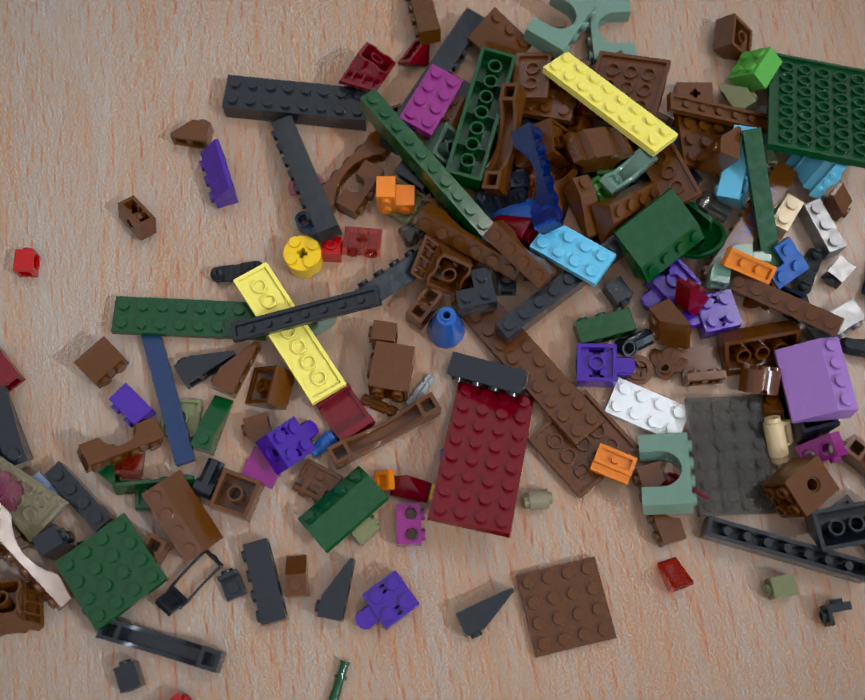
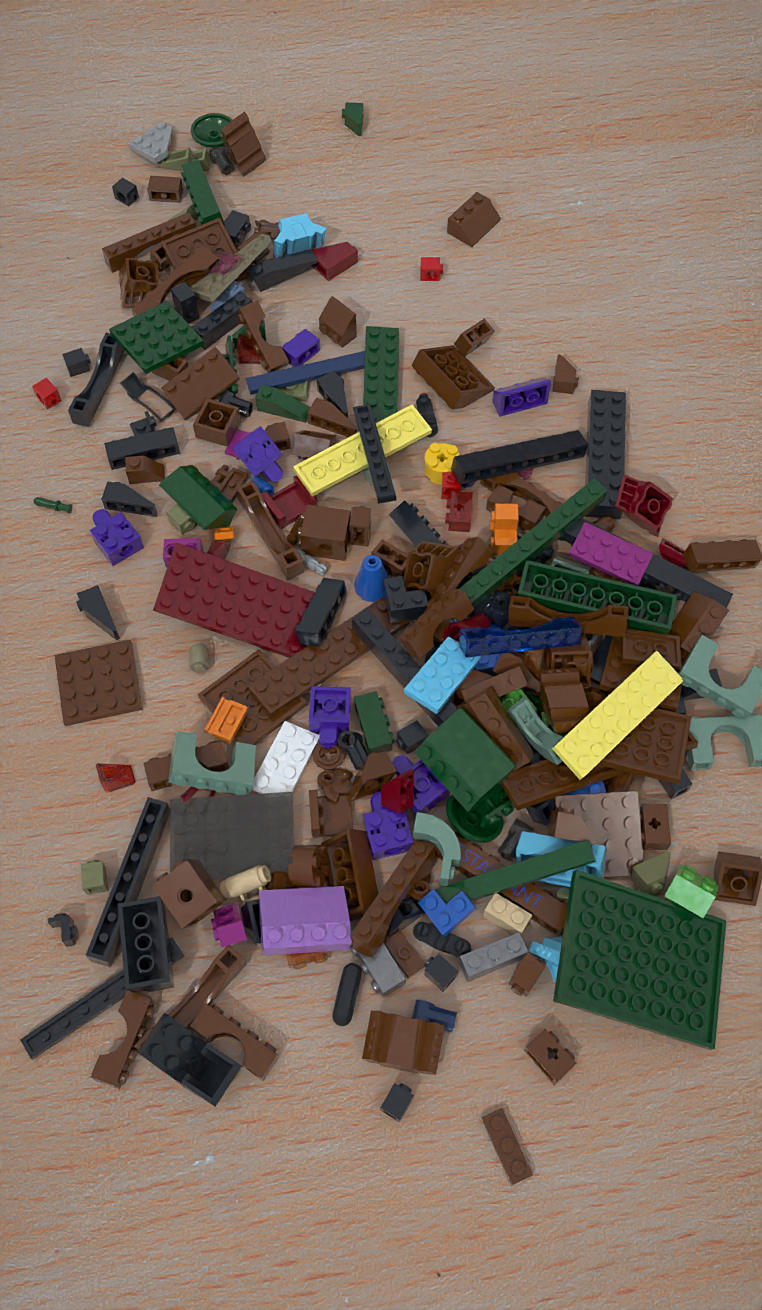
camera: 90 degrees right, 10 degrees down
(185, 244) = (451, 376): none -> reddish brown slope
(714, 111) = (624, 829): reddish brown plate -> none
(748, 265) = (433, 851): orange plate -> none
(827, 299) = (404, 954): none -> reddish brown plate

